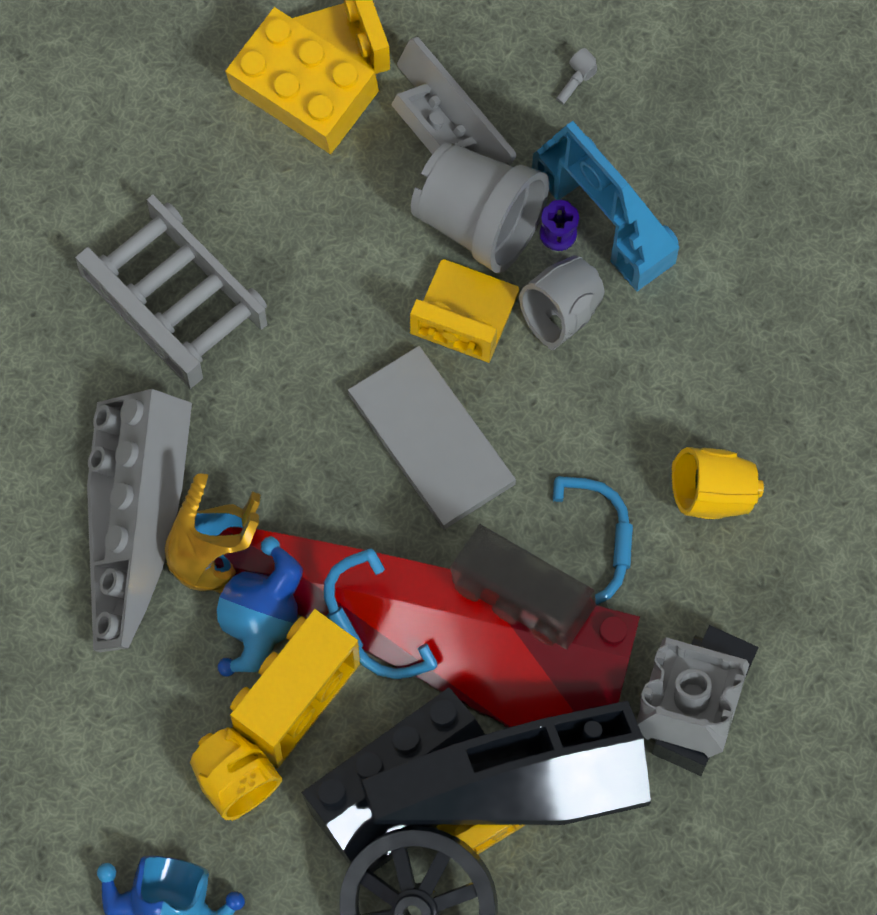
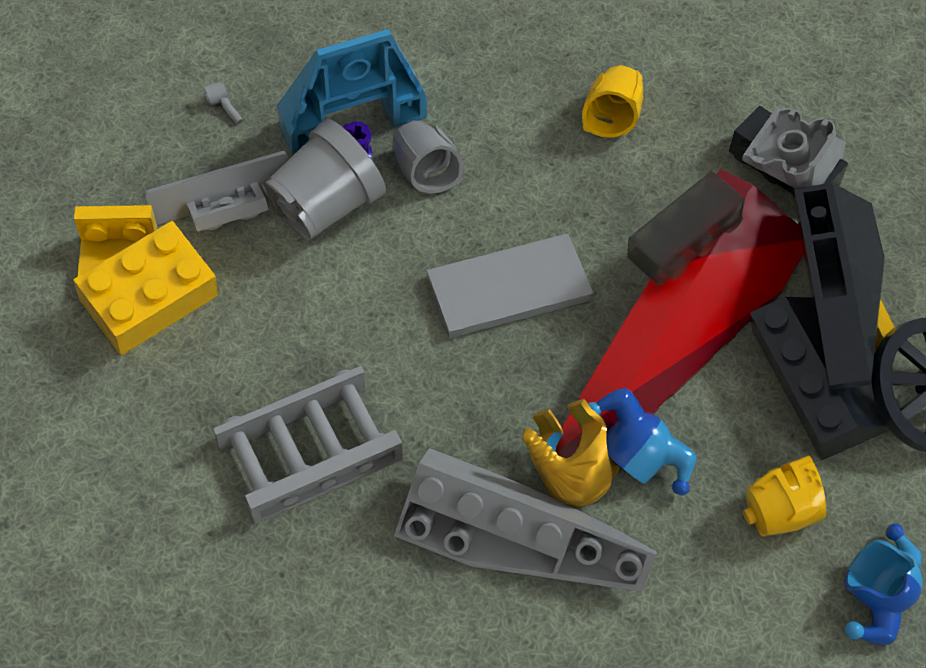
camera: 75 degrees left, 10 degrees down
(295, 686) = (723, 426): yellow brick -> none
(340, 618) = (672, 385): dark azure piece -> none
(464, 310) = (407, 229): yellow bracket -> none
(623, 529) = (629, 176): dark azure piece -> none

